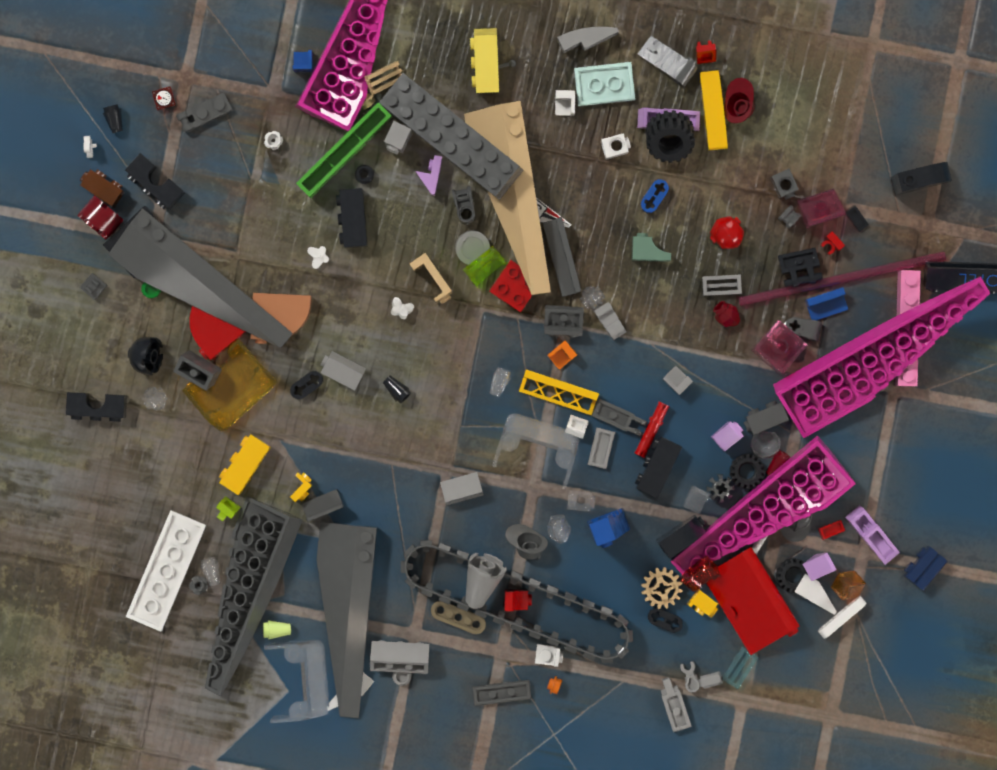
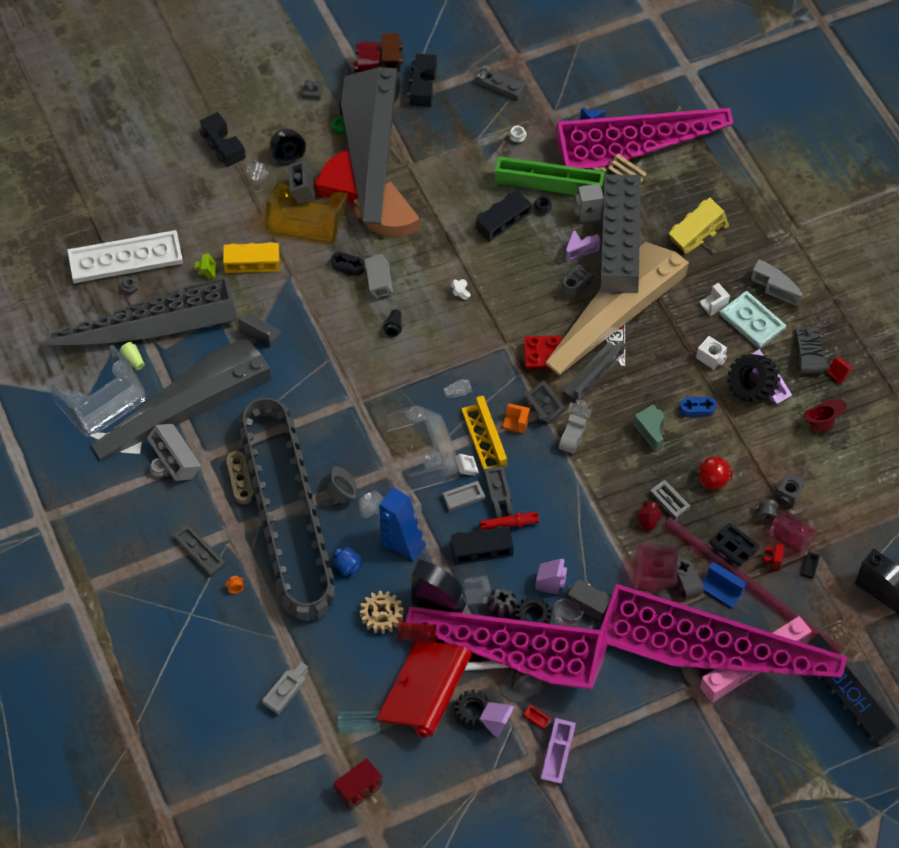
camera: 50 degrees right, 30 degrees down
(88, 146) = (415, 27): white piece -> none
(113, 117) = (448, 31): black cone -> none
(164, 98) = (489, 53): tile -> none
(210, 569) = (148, 285): clear cone -> none
(301, 493) = (262, 306): yellow bracket -> none
(318, 256) = (455, 214): white piece -> none
(424, 260) = (506, 277): tan panel -> none
(461, 488) = (349, 415): light grey hinge -> none
(471, 246) = (548, 307): light grey piece -> none
(482, 578) = (284, 455): light grey cone -> none
(484, 265) = (540, 322): clear neon green hinge -> none
(517, 599) = (286, 505): red arch -> none
(548, 655) = (257, 564): white bracket -> none
(598, 584) = (346, 561): none -> blue head
(663, 624) = (360, 634): black beam -> none
(677, 380) = (564, 516): light grey panel -> none
(694, 684) = (318, 692): light grey bar -> none
(703, 604) = (392, 652): yellow brick -> none
(713, 110) = (801, 401): yellow slope -> none
(795, 706) = (358, 783): none -> dark red brick
(815, 593) = (471, 734): white sticker -> none
(841, 617) = (467, 773): white beam -> none
(848, 585) = (499, 759): clear orange panel -> none
(924, 568) = (564, 812): dark blue brick -> none

